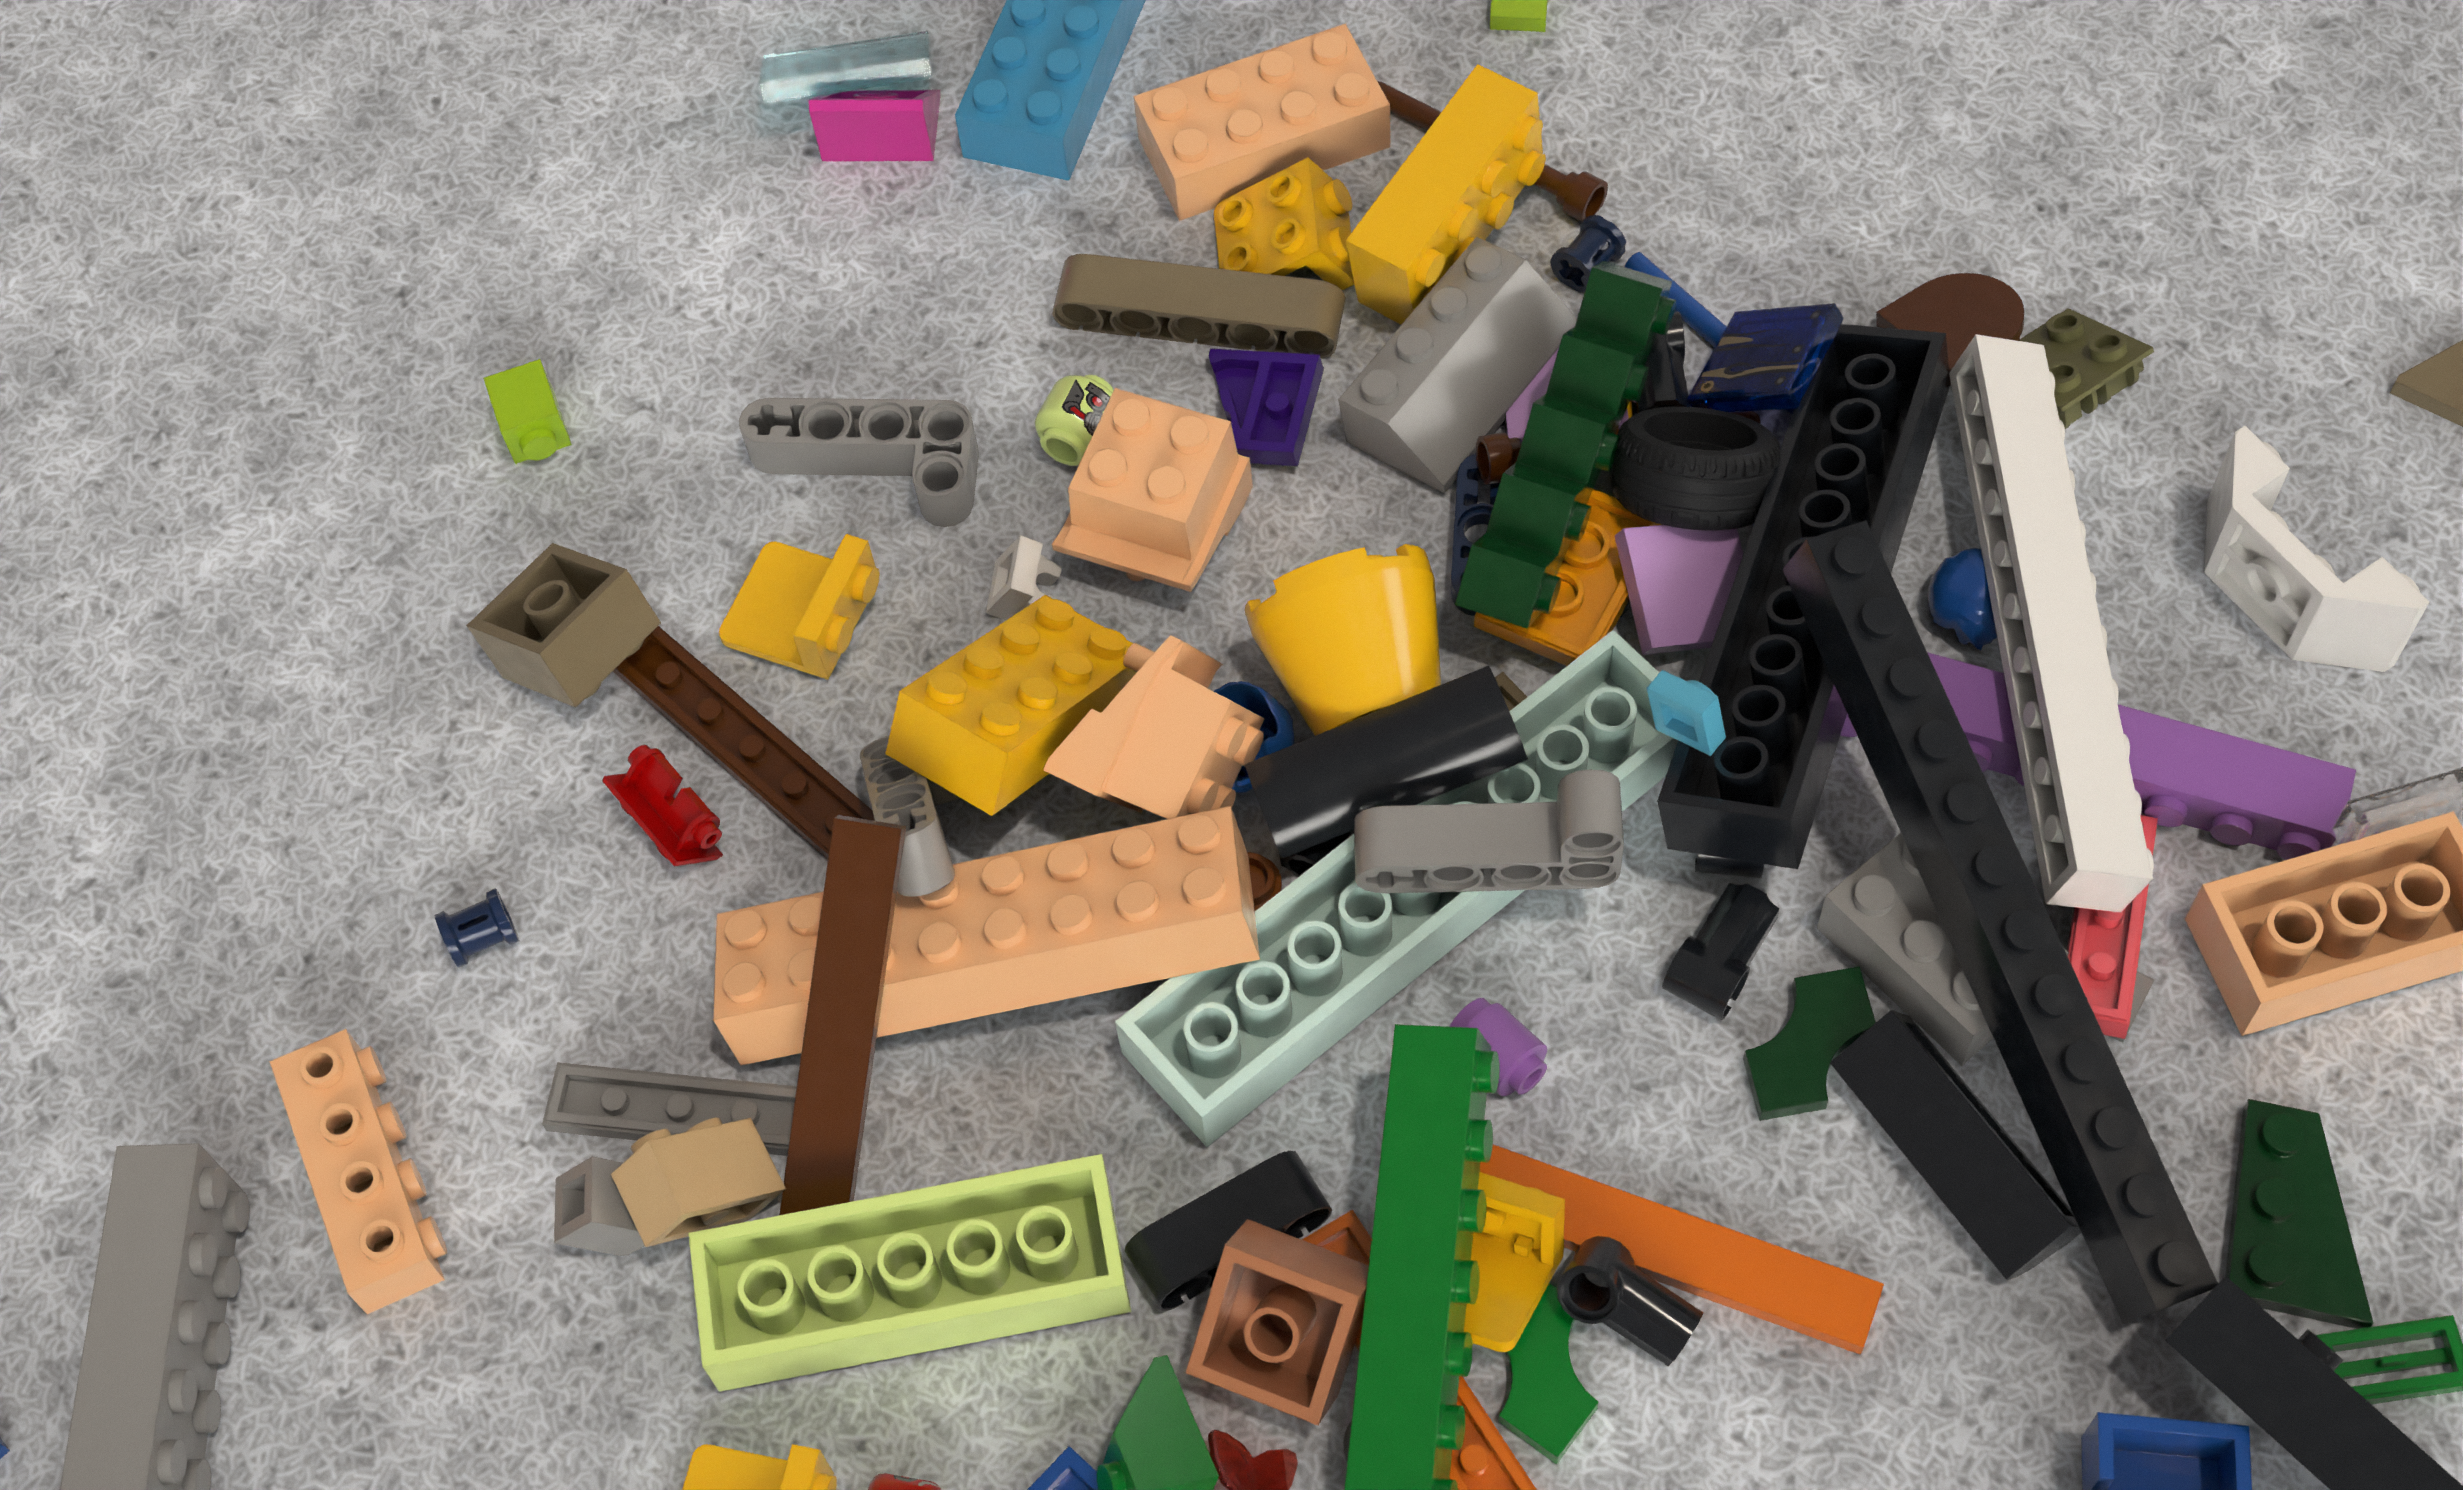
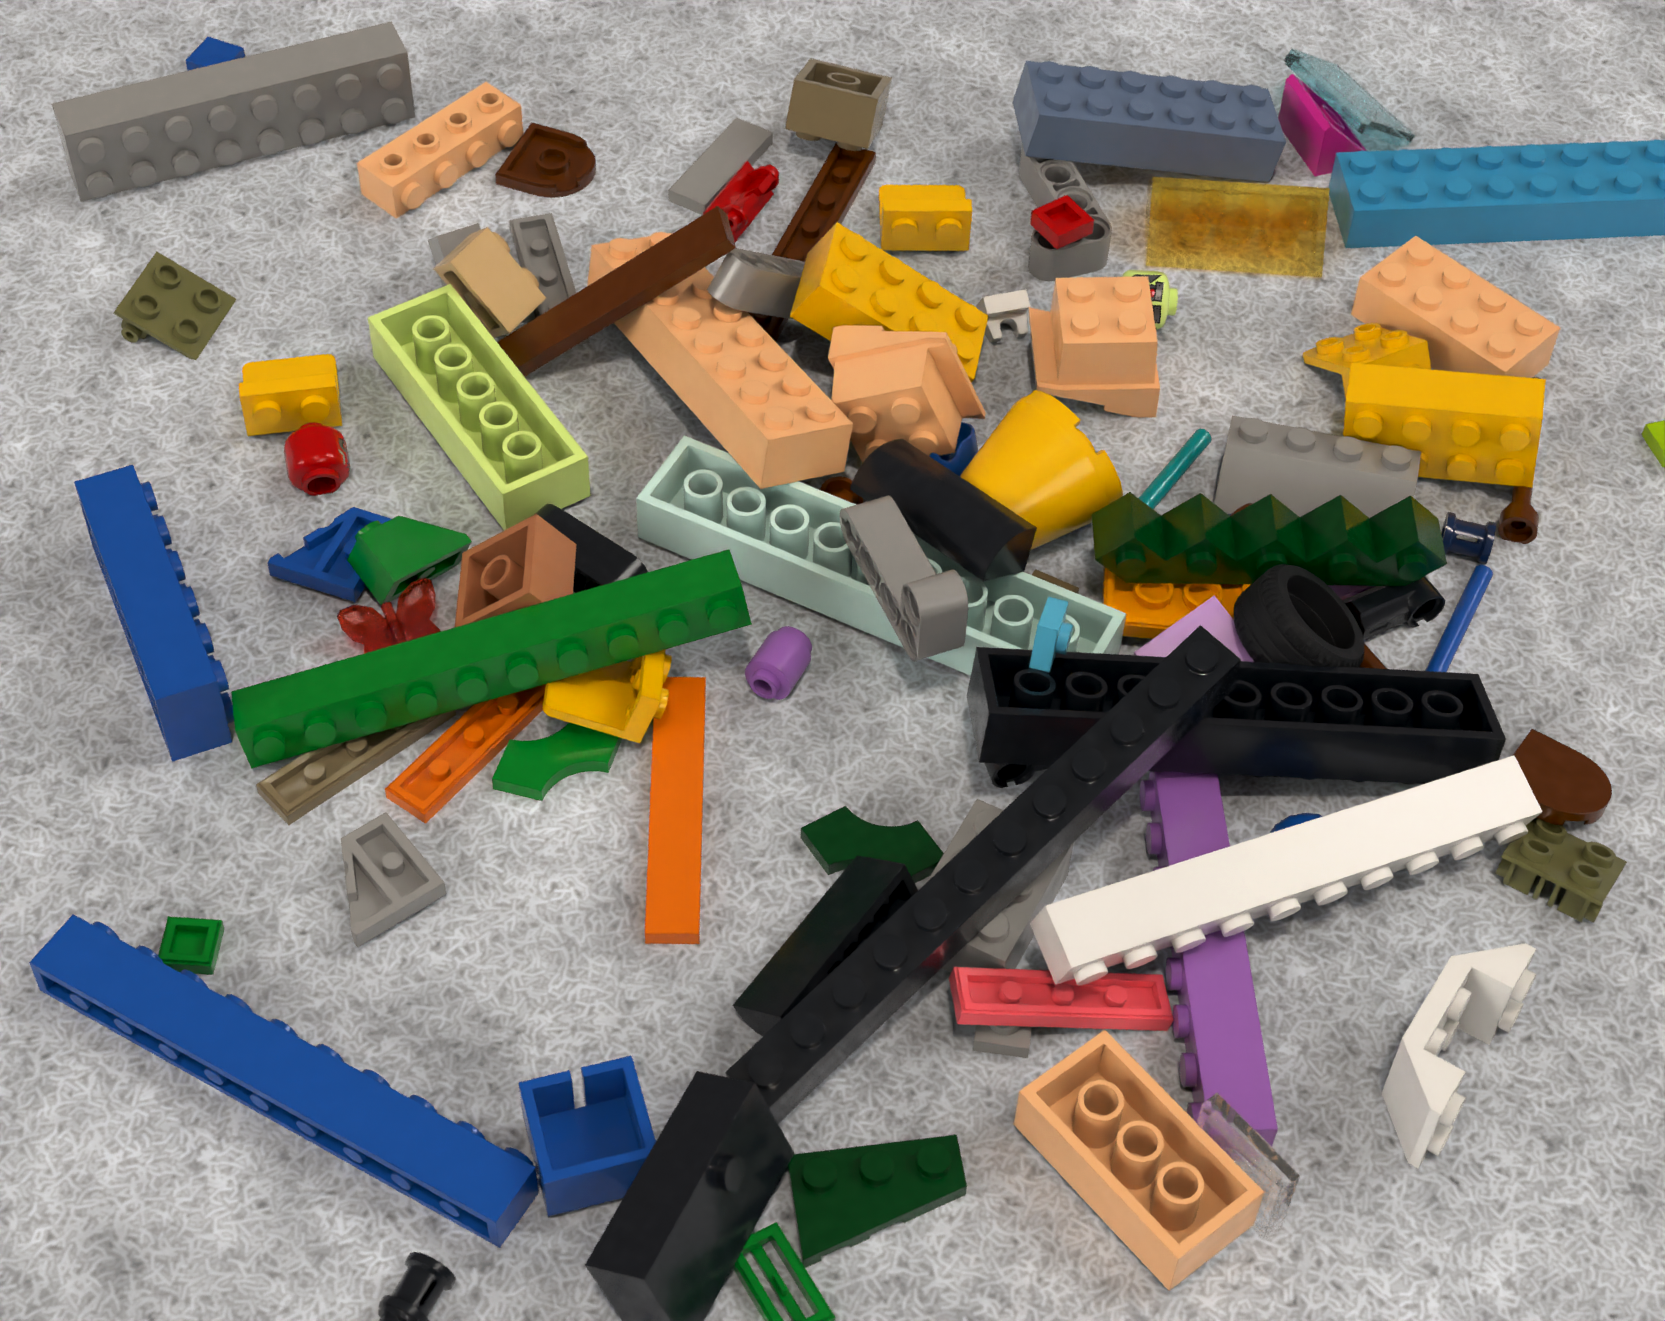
camera: 60 degrees right, 10 degrees down
(445, 1035) = (548, 163): none -> reddish brown tile
(476, 928) = (621, 147): dark blue bush -> none
(527, 412) = (989, 45): lime brick -> none
(572, 817) = (718, 164): none -> light grey tile
(794, 292) = (1147, 121): none -> sand blue brick
(937, 448) = (1062, 222): none -> red plate
(993, 274) = (1235, 226): none -> clear yellow slope
(1199, 304) = (1279, 337): dark tan beam -> none
(1268, 401) = (1217, 396): dark purple wing -> none
(1363, 513) = (1176, 468): none -> teal bar
(1630, 1304) = (623, 770): black piece -> none
(1717, 961) = (902, 768): black piece -> none
(1766, 358) = (1424, 650): clear blue tile -> none

